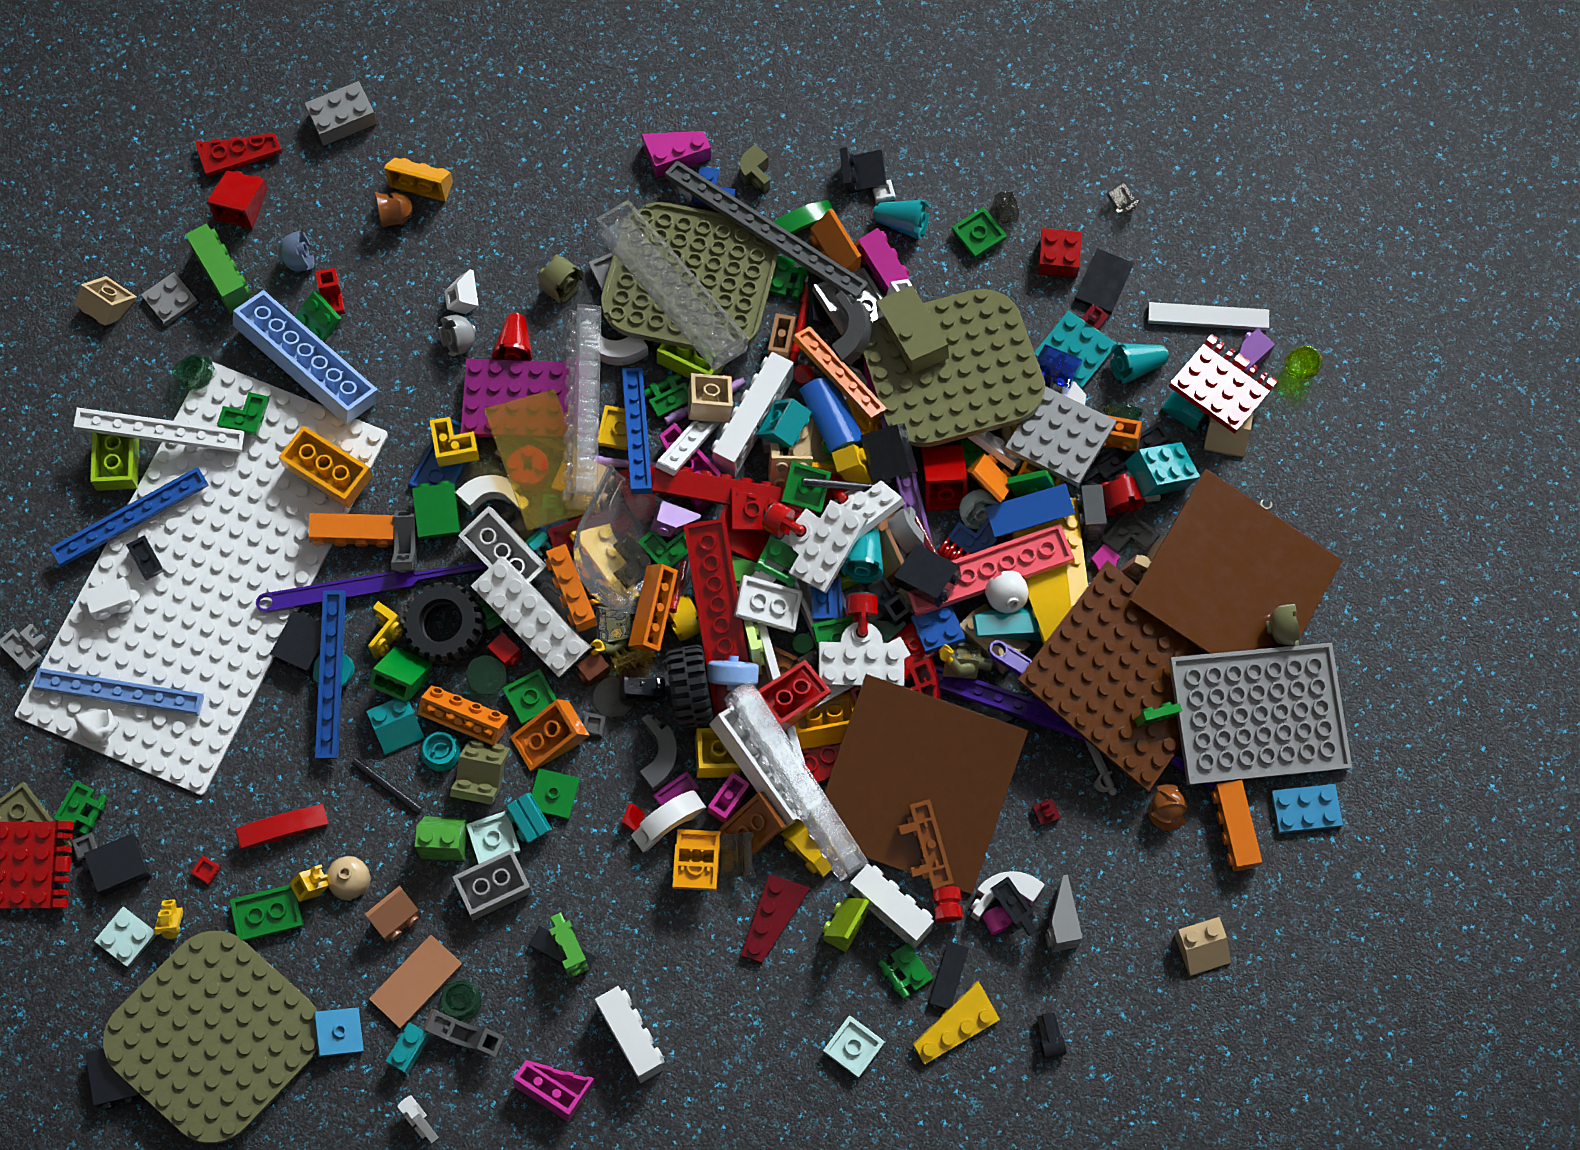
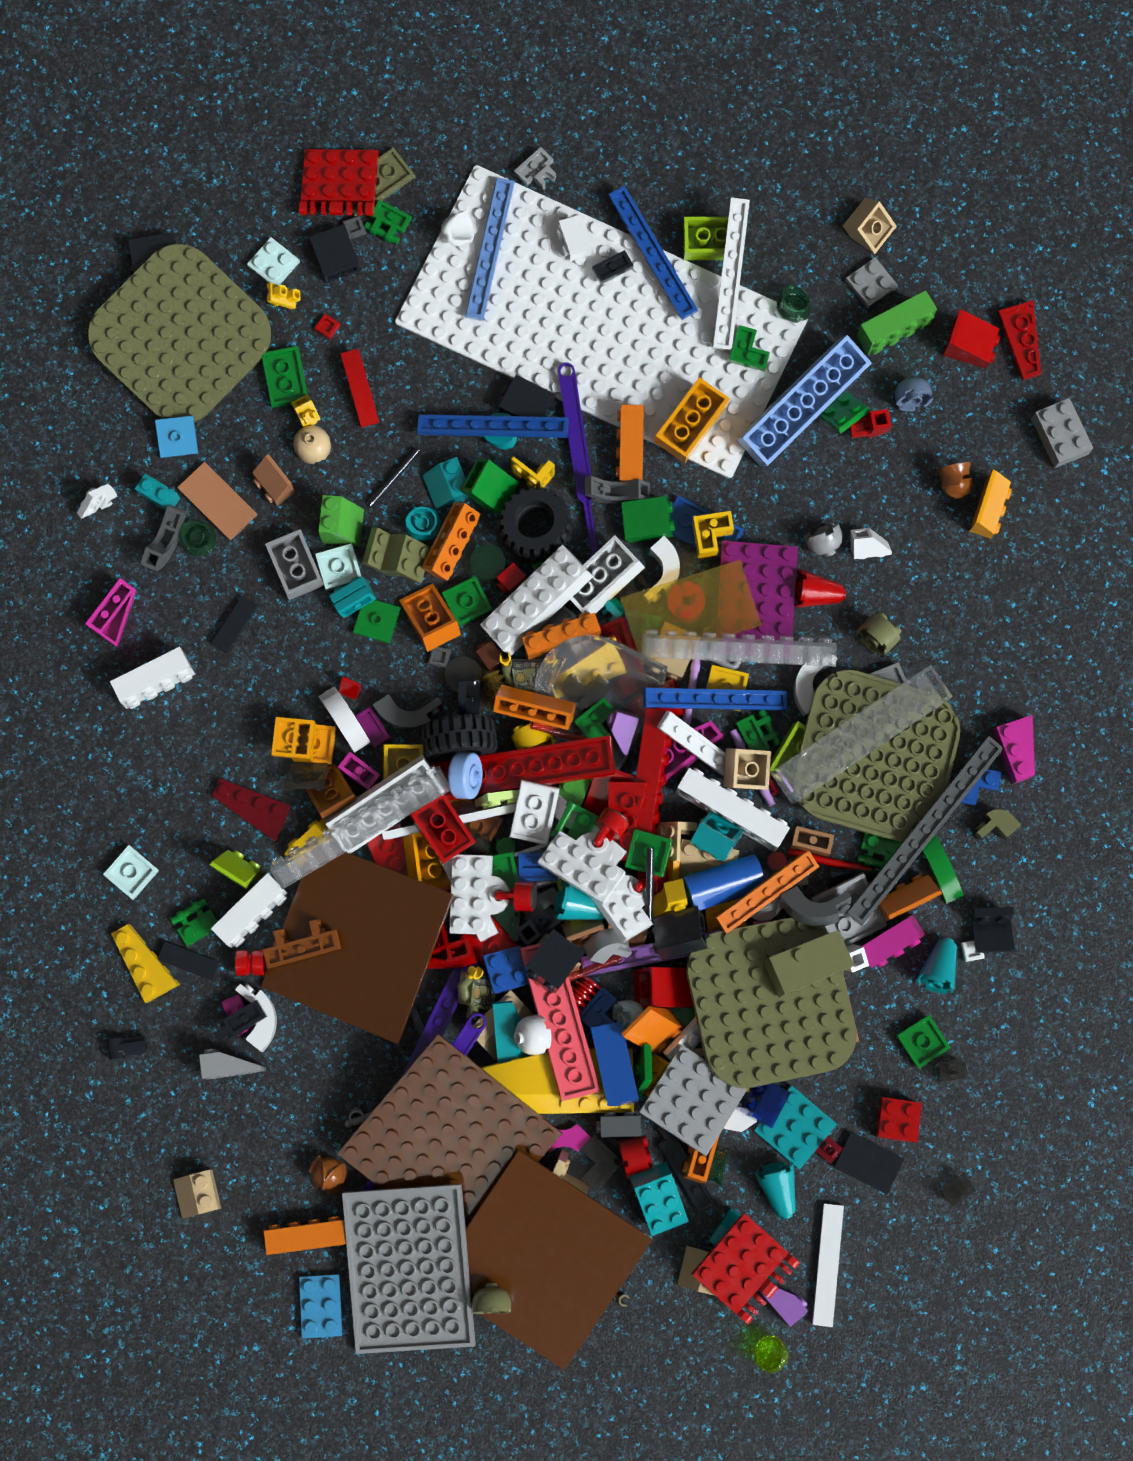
camera: 90 degrees right, 10 degrees up
(568, 945) = (233, 627): bright green hips -> none
(1046, 812) = (332, 1060): dark red tile -> none
(1164, 712) = (409, 1175): green plate -> none

